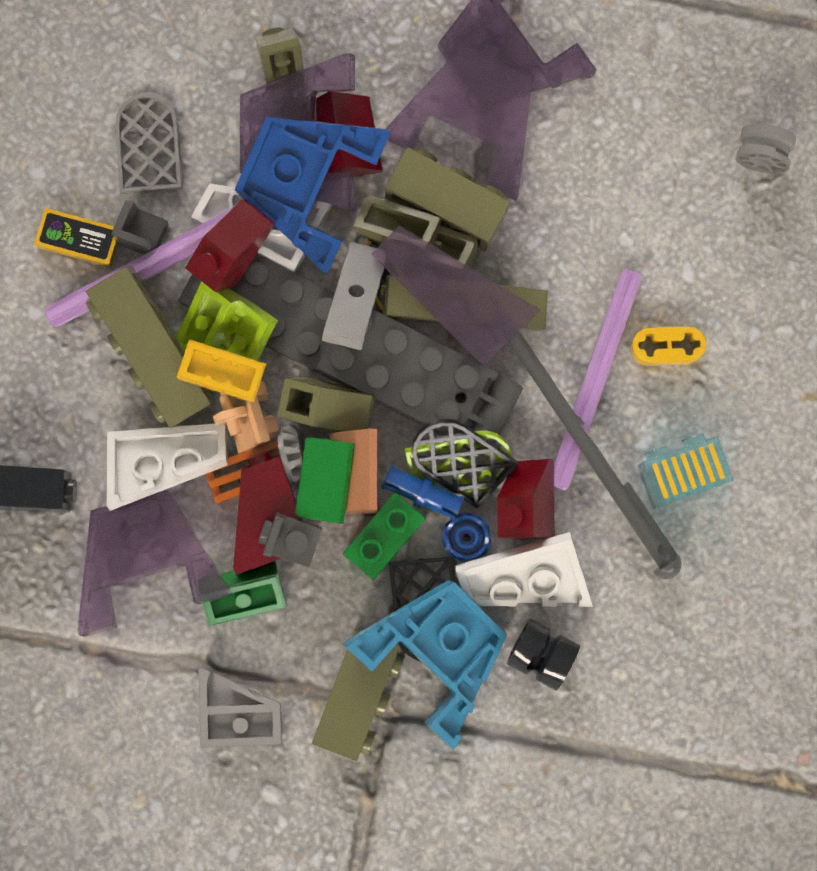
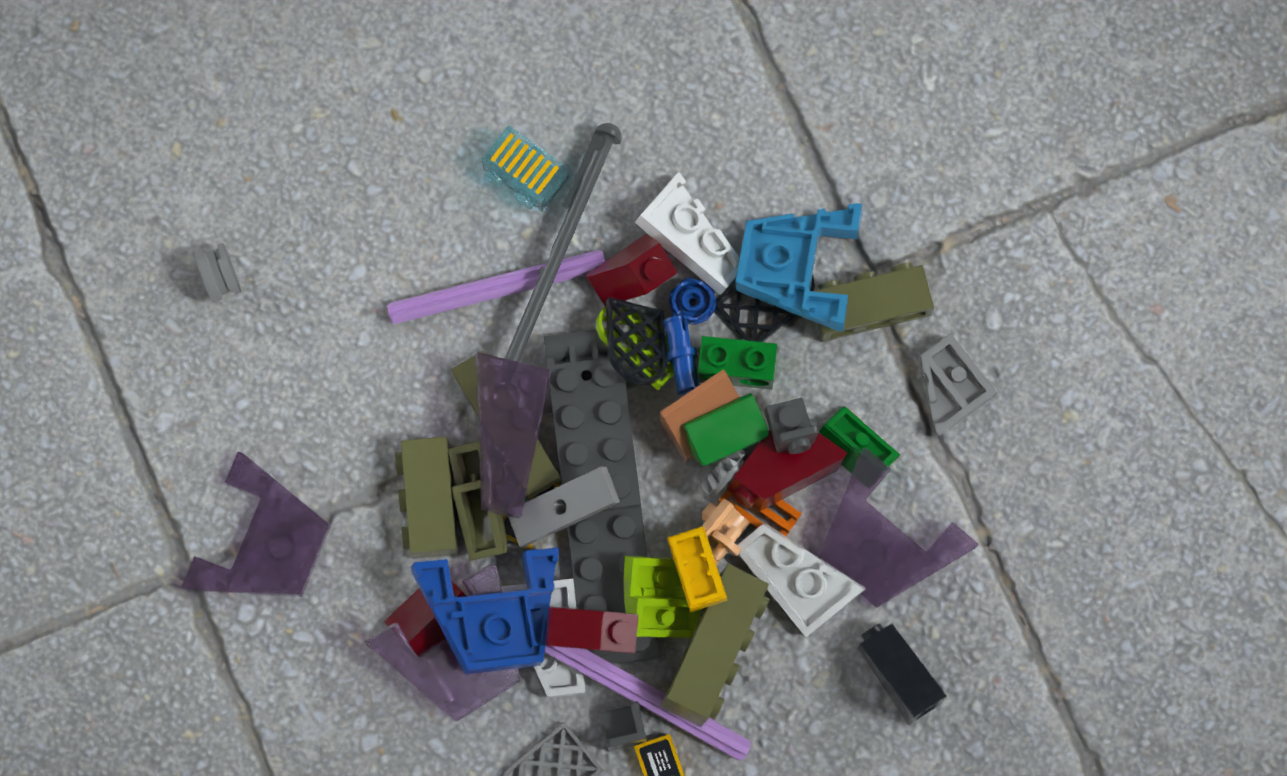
camera: 115 degrees left, 5 degrees down
(279, 53) = (401, 709): olive slope -> none
(325, 404) = (665, 475): olive slope -> none
(480, 100) = (330, 527): clear purple wing -> none
(543, 654) = (743, 187): black wheel -> none
(668, 336) = (423, 252): yellow beam -> none

